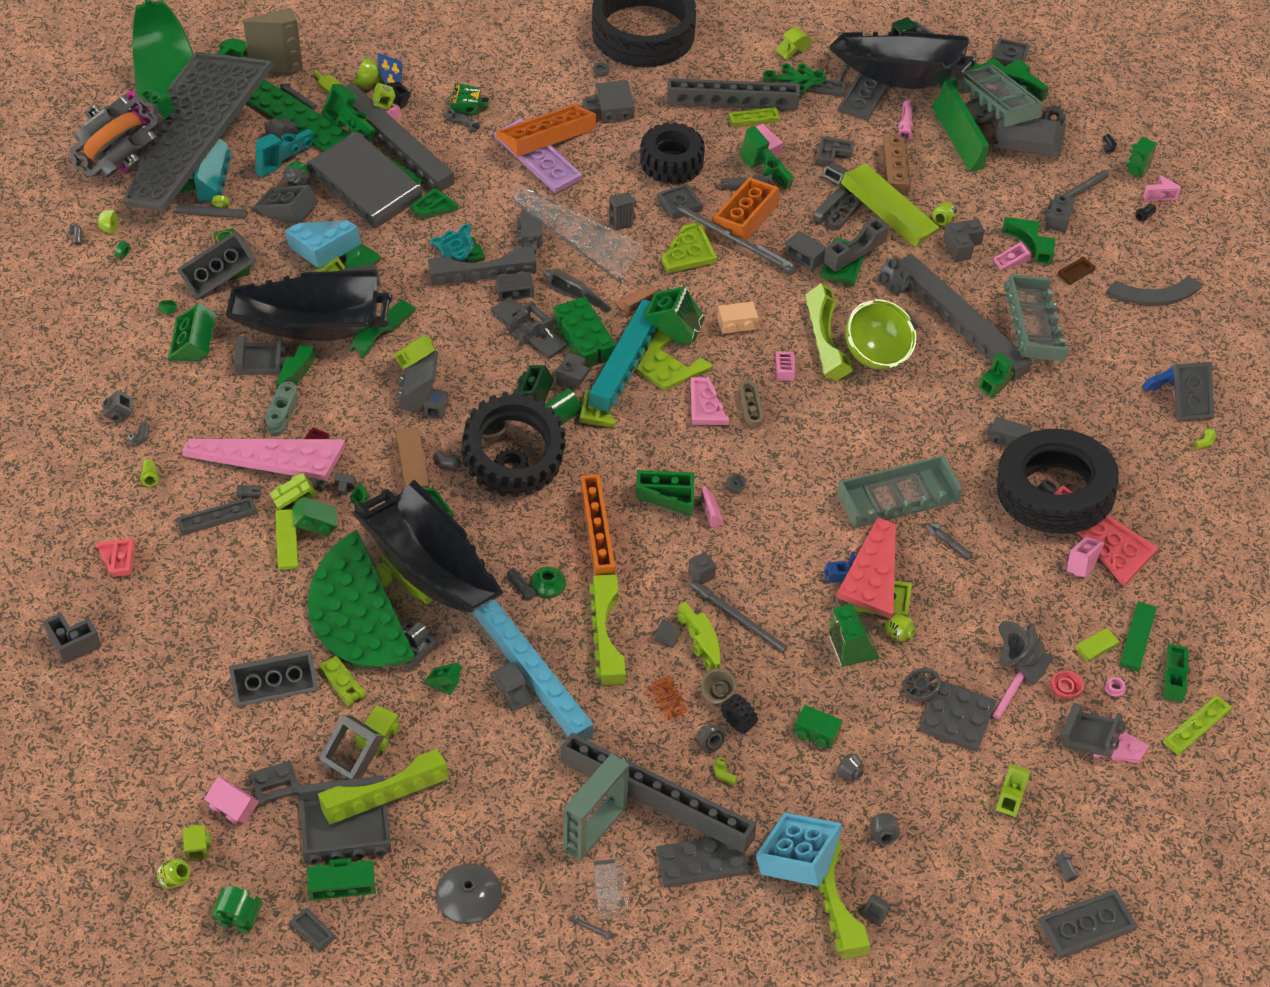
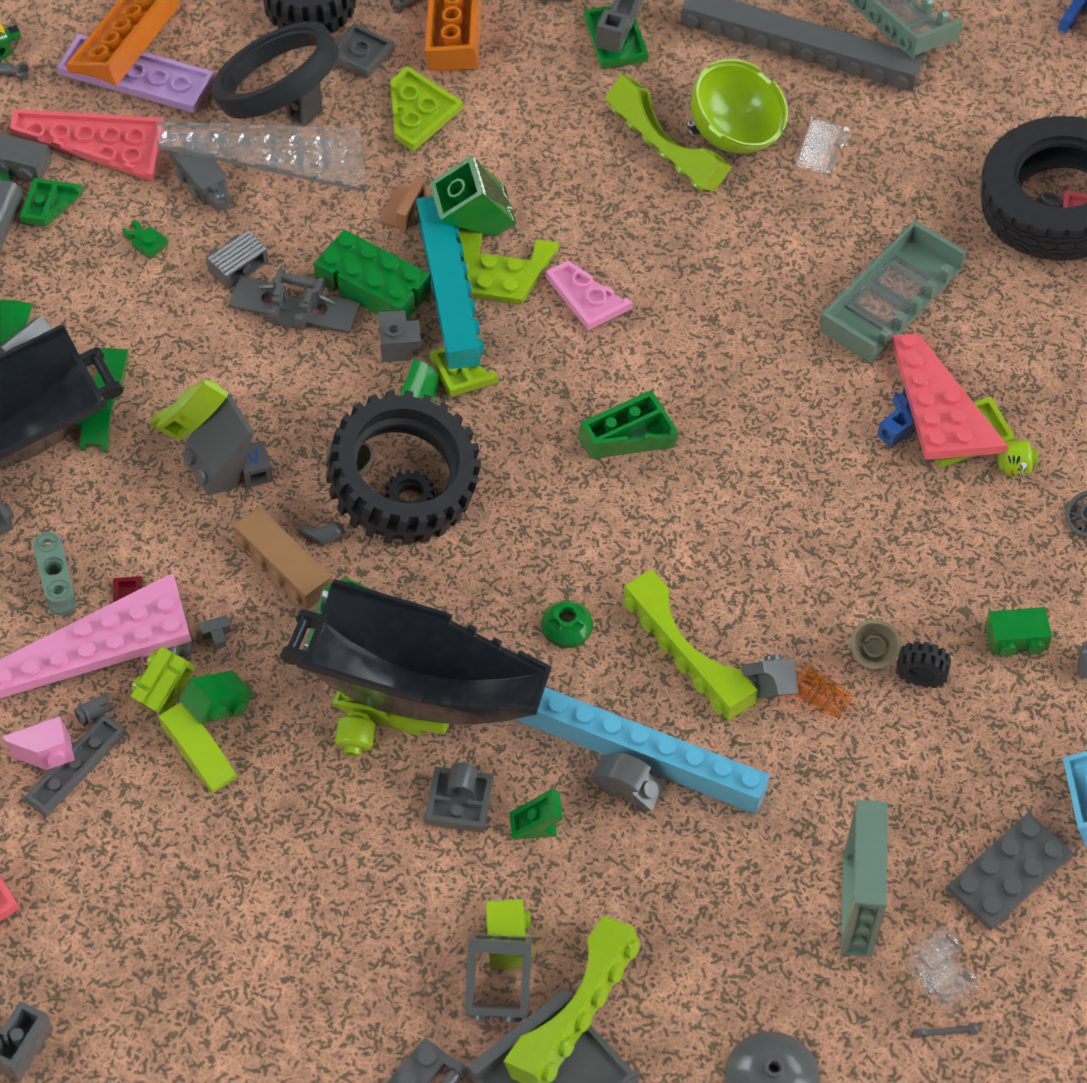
camera: 30 degrees left, 5 degrees up
(206, 494) = (42, 745): none -> bright pink slope
(273, 678) = (322, 942): dark grey slope -> none
(296, 368) = (31, 508): green slope -> none
(342, 680) = (409, 894): lime plate -> none
(353, 609) = (359, 793): green plate -> none
(359, 494) = (247, 638): green slope -> none
(445, 270) = (134, 281): dark grey arch -> none
(455, 244) = (118, 242): teal tile -> none
(488, 182) = (106, 139): none -> coral wing
(521, 584) = (537, 644): dark grey axle -> none
(535, 382) = (364, 375): dark green brick -> none
(572, 287) = (308, 226): dark grey piece -> none
(597, 525) = (580, 520): orange brick -> none
(640, 671) = (772, 676): none -> dark grey brick
(645, 185) = (284, 90): none -> black tyre
(665, 796) = (913, 816): dark grey brick -> none
(667, 634) = (759, 611): dark grey slope -> none
(702, 568) = (742, 507): dark grey brick -> none
(704, 636) = (815, 595): lime slope -> none
(708, 594) = (769, 535): dark grey bar -> none
(711, 508) = (691, 426): bright pink slope -> none
(711, 738) = (908, 713): dark grey brick -> none
(721, 772) = (950, 750): lime arm -> none
(735, 483) = (697, 378): dark grey tile -> none
(737, 317) = (546, 167): light nougat brick -> none
(751, 398) = (638, 260): dark tan plate -> none
(760, 250) = (508, 68): dark grey bar -> none
(782, 364) = (646, 214): bright pink slope -> none
(805, 250) = (564, 39): dark grey brick -> none
(851, 636) = (977, 500): green slope -> none
(895, 276) = (691, 25): dark grey dish -> none
(920, 382) = (821, 144): none -> clear brick
(935, 530) = (964, 316): dark grey piece -> none
(997, 377) = (898, 93): green brick -> none
(1006, 431) = (959, 157): dark grey brick -> none

